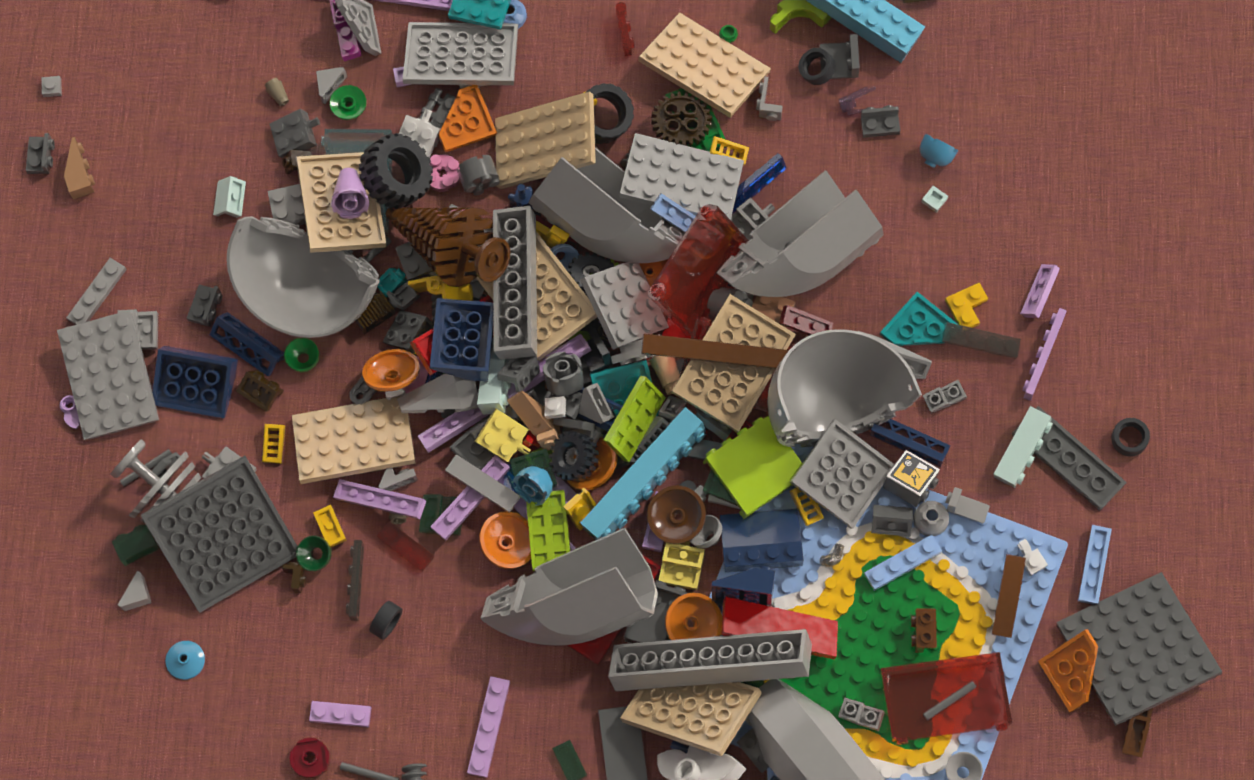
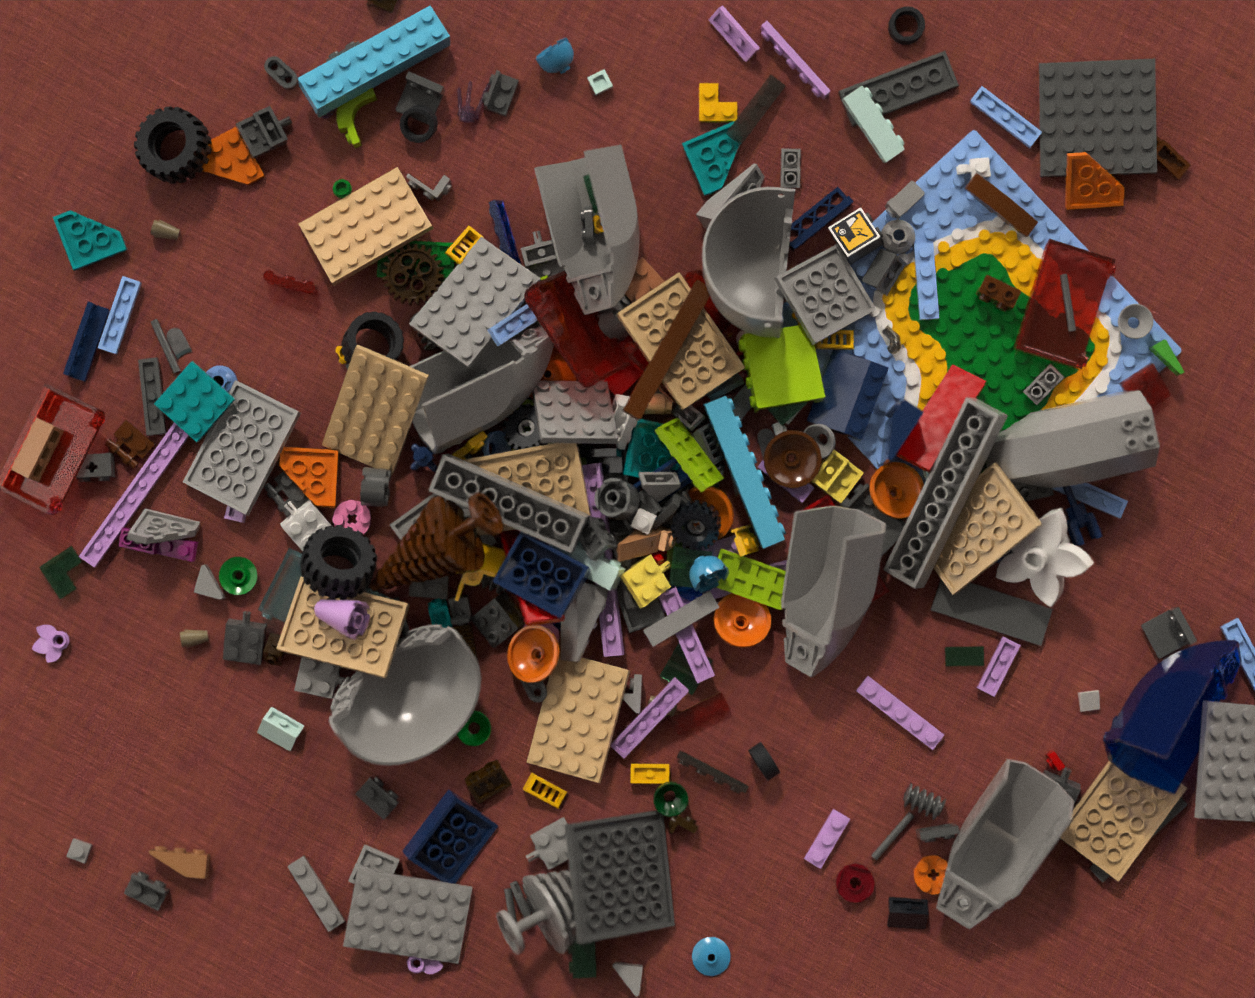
camera: 70 degrees left, 15 degrees up
(248, 337) = (433, 771): dark blue fence -> none
(803, 321) = (667, 257): plate -> none

